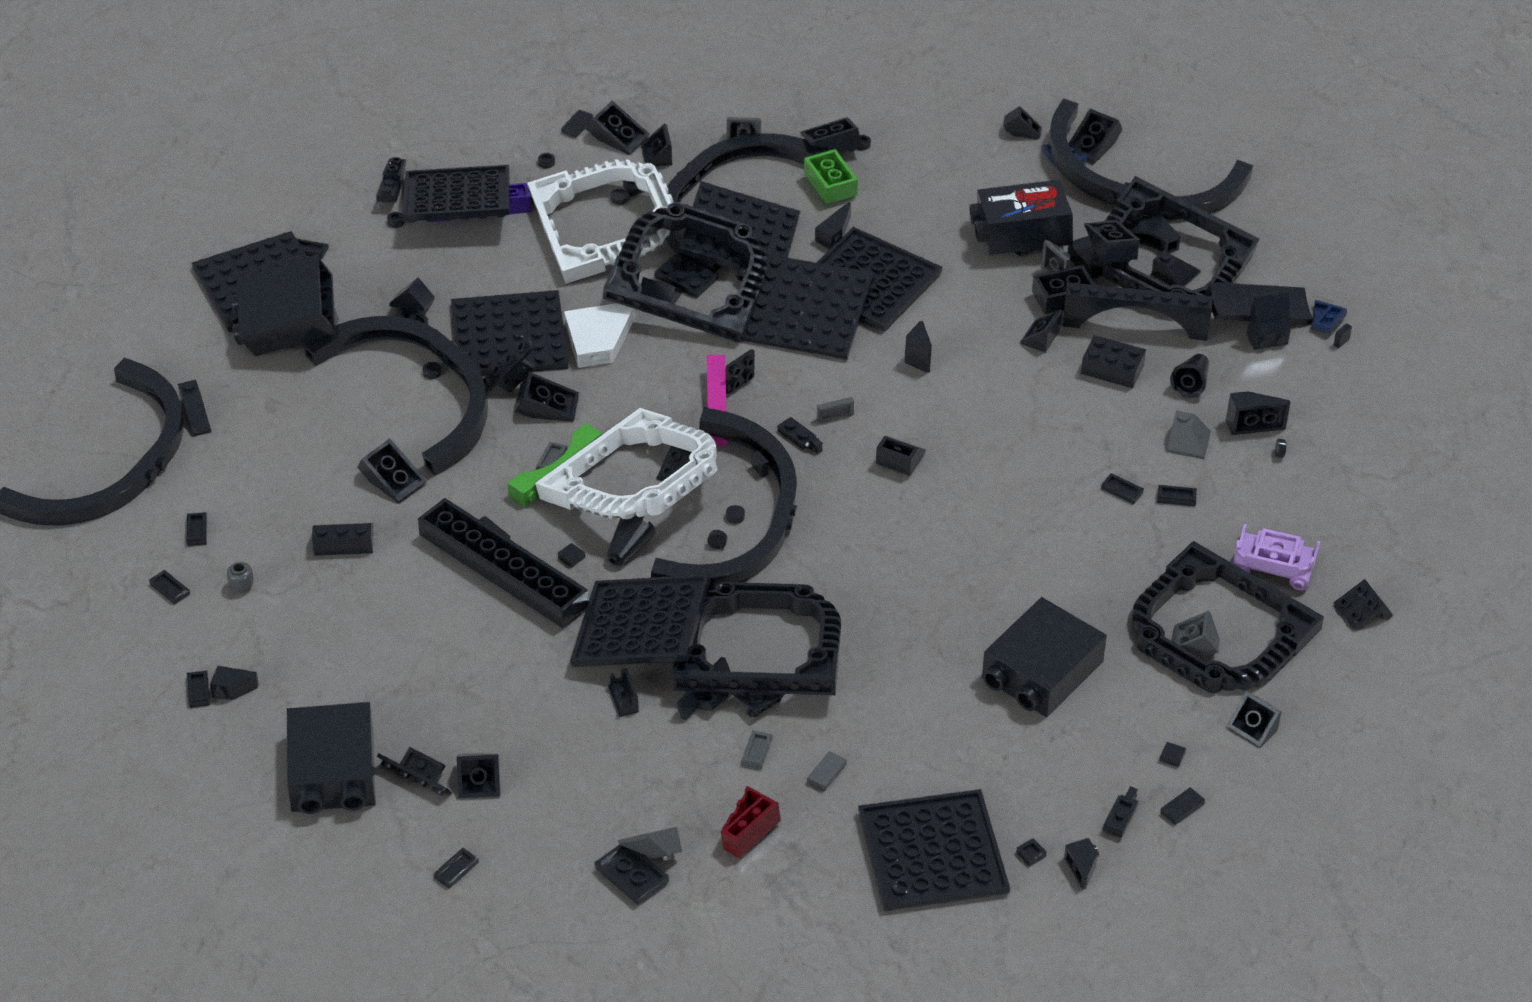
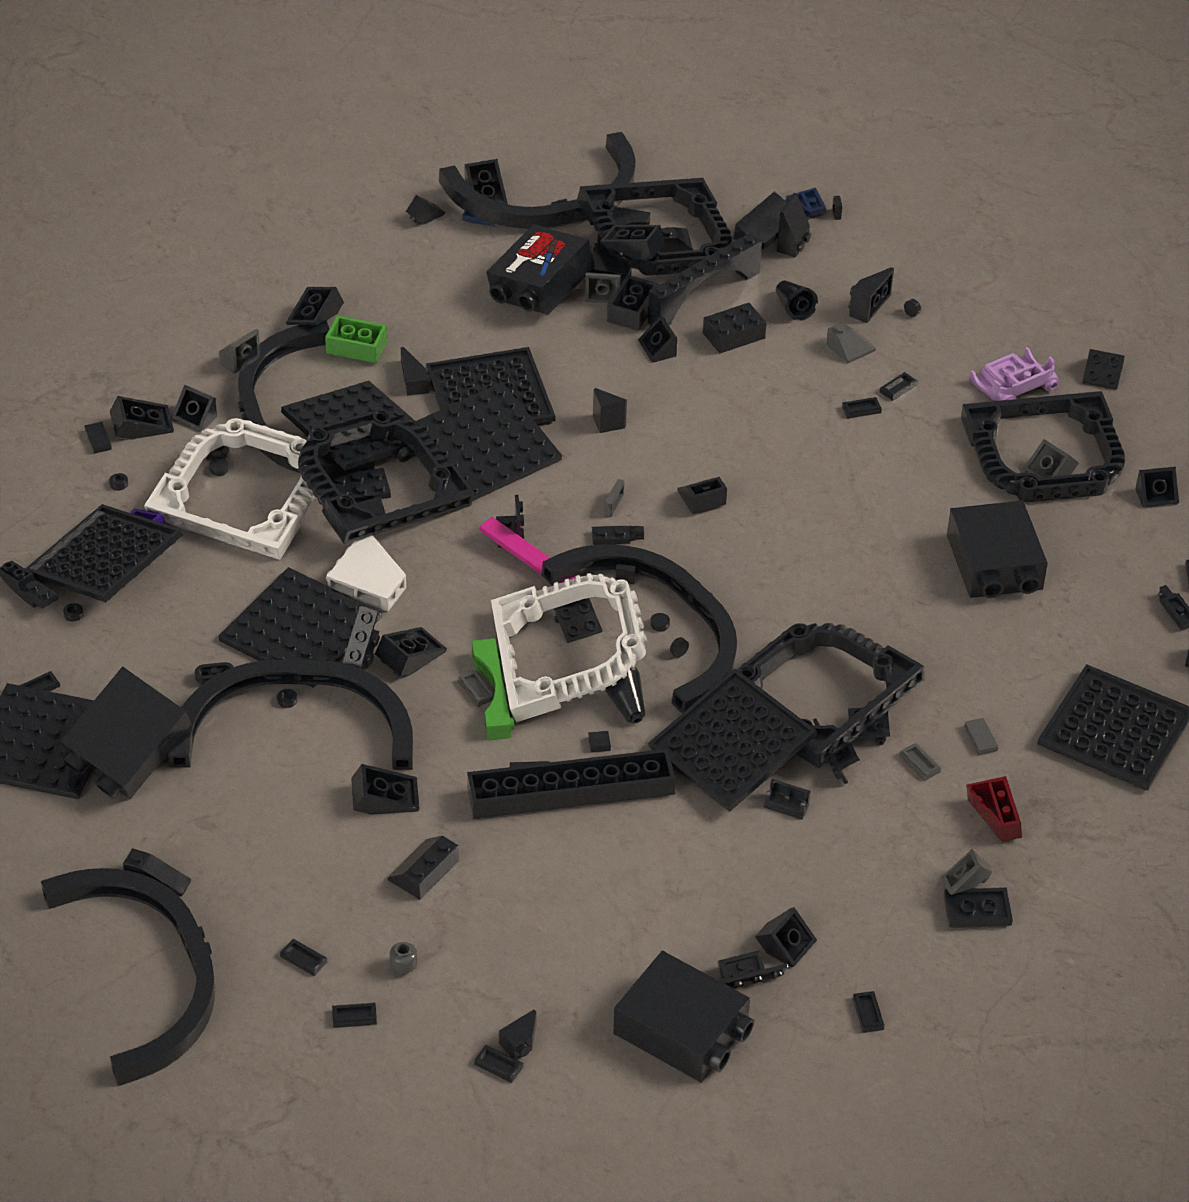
camera: 50 degrees left, 0 degrees up
(413, 297) = (189, 656): black slope -> none
(1031, 852) = (1166, 678): black tile -> none
(1172, 754) = (1144, 549): black tile -> none

